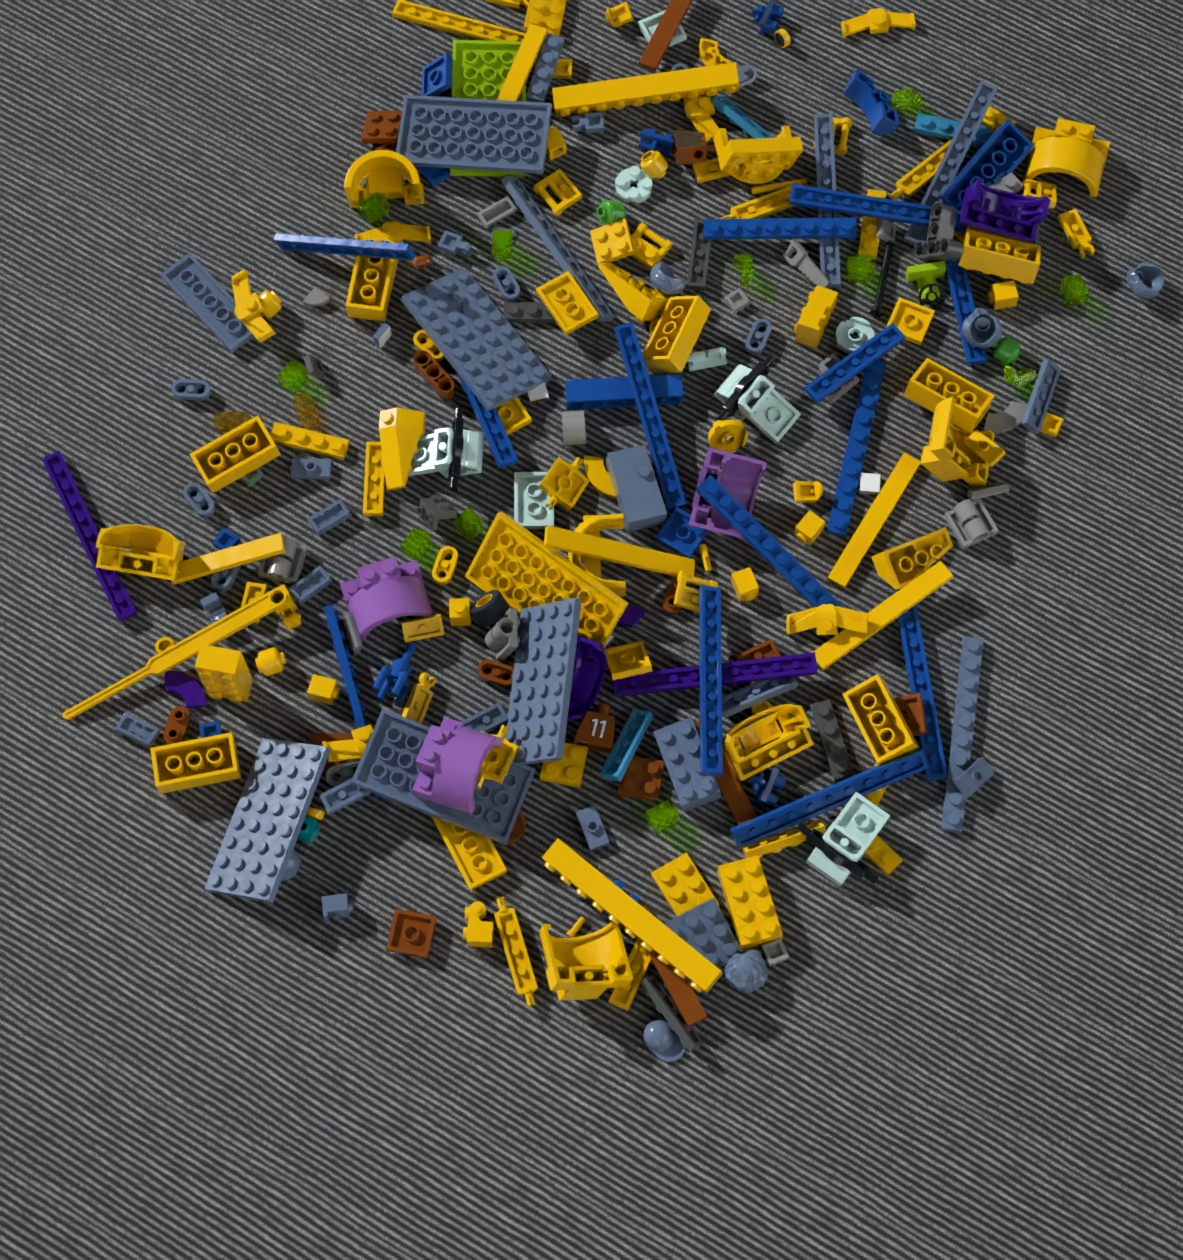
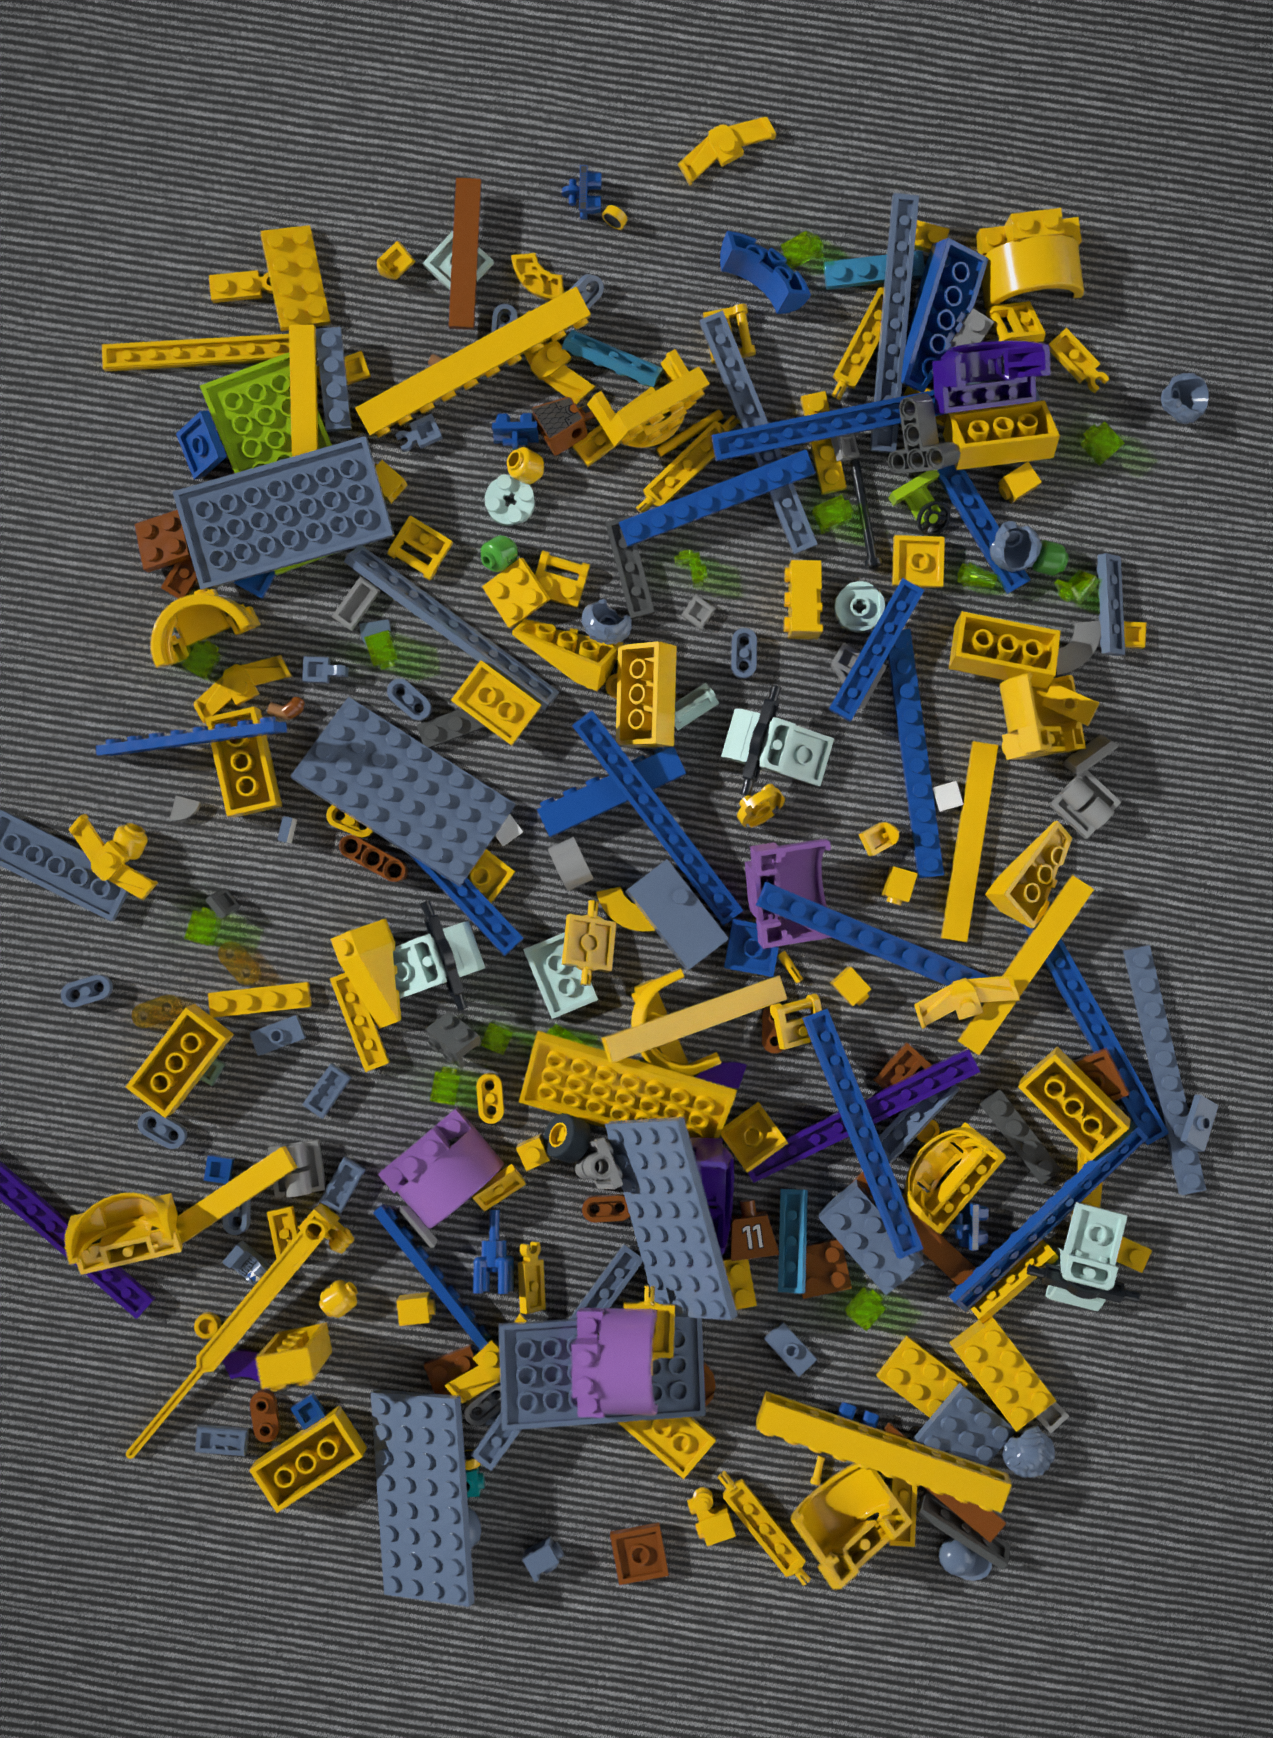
camera: 25 degrees left, 20 degrees up
(804, 263) = (764, 533): light grey piece -> none
(948, 345) = (975, 576): none -> clear neon green cone

